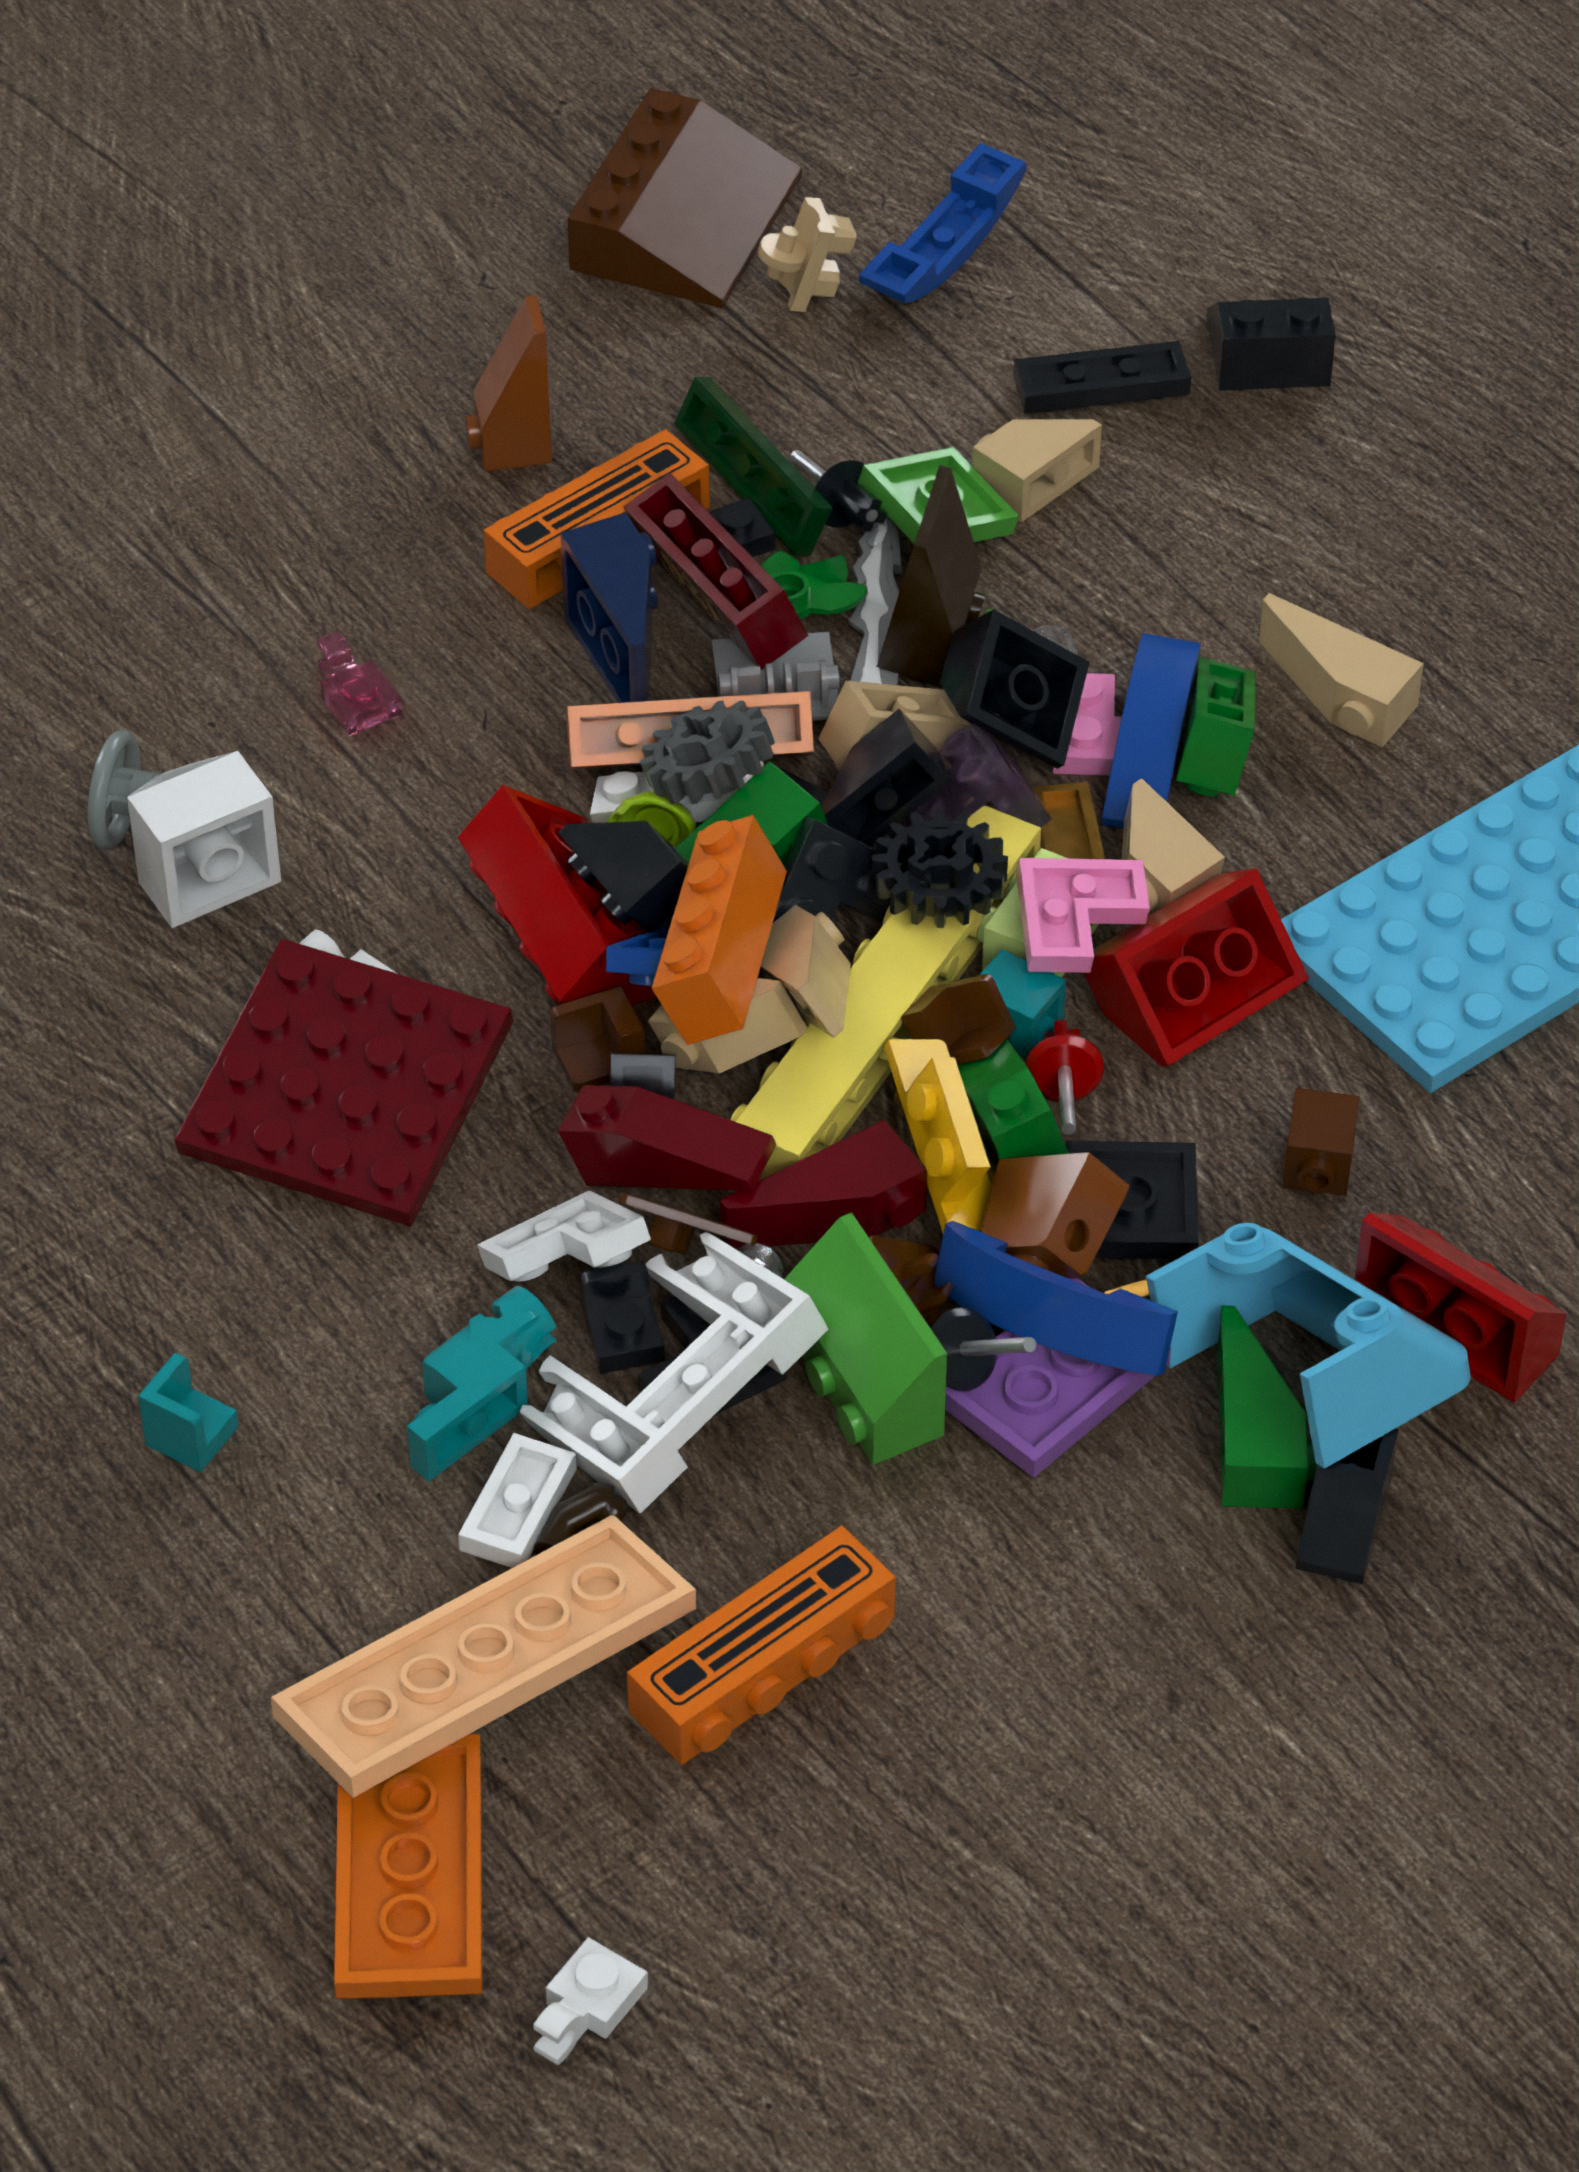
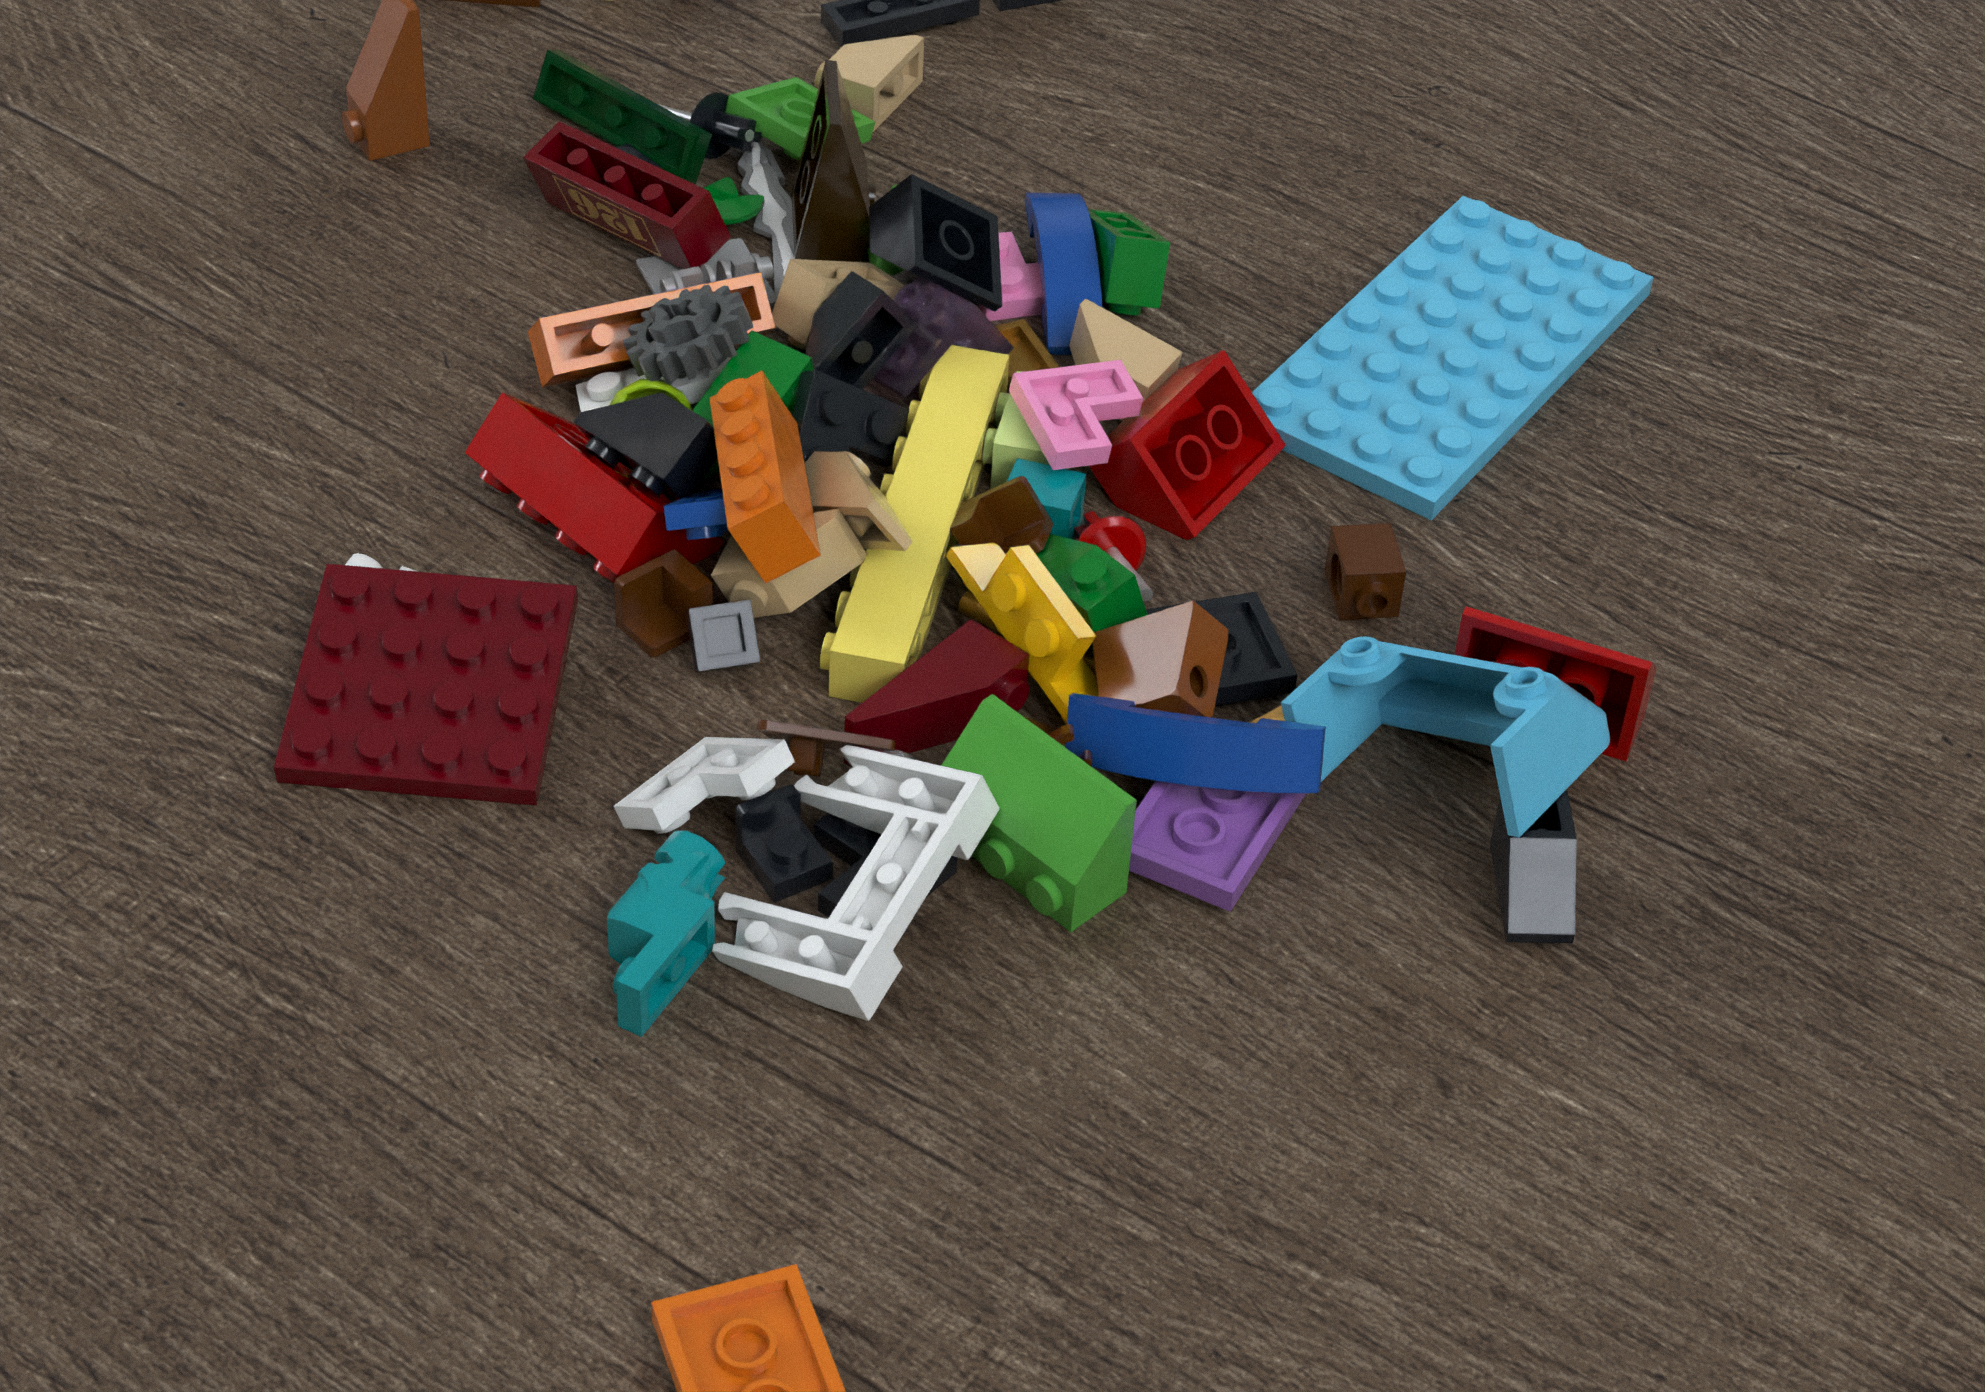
camera: 20 degrees left, 5 degrees down
(183, 1420) = (373, 1028): teal panel -> none
(196, 830) = (208, 486): white piece -> none
(354, 693) = (314, 355): clear pink plate -> none
(482, 1655) = (768, 1189): light nougat plate -> none
(517, 1501) = (744, 1034): white plate -> none
(526, 545) = (480, 183): orange brick -> none
(579, 1510) = (804, 1034): dark brown arm -> none
(611, 601) = (541, 234): dark blue slope -> none
(657, 1142) = (750, 675): dark red slope -> none
(762, 1645) = (1042, 1119): orange brick -> none
(939, 868) = (940, 396): black gear -> none
(973, 1347) = (1140, 787): black piece -> none
(1260, 1424) = (1418, 817): green slope -> none
(1342, 673) = (1203, 197): tan slope -> none

